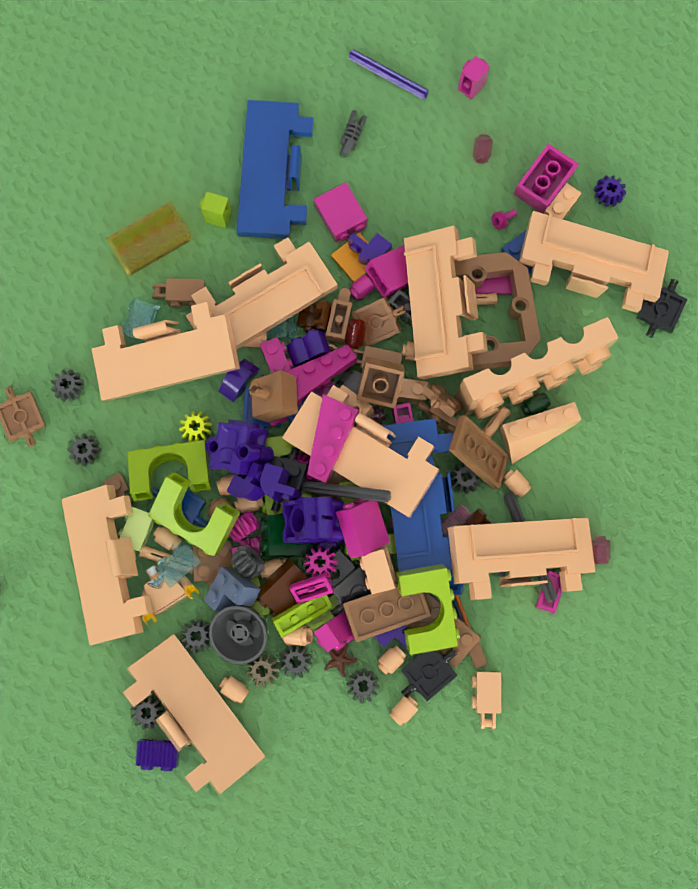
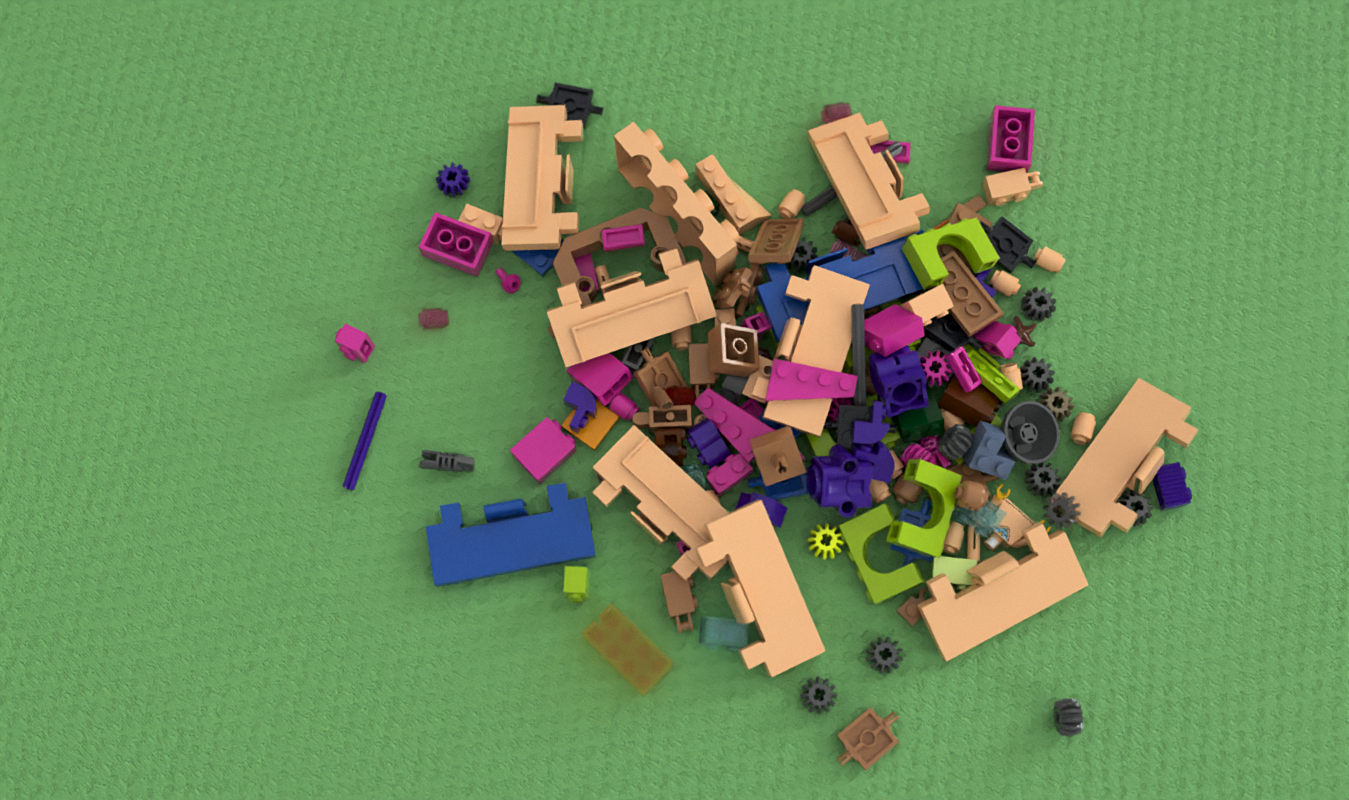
camera: 100 degrees left, 5 degrees down
(158, 638) = (1056, 515): none -> dark grey gear
(191, 557) = (971, 495): none -> medium nougat head
(360, 313) = (661, 398): none -> medium nougat piece
(513, 315) = (623, 237): none -> dark pink tile
(534, 710) = (1010, 138): none -> dark pink brick

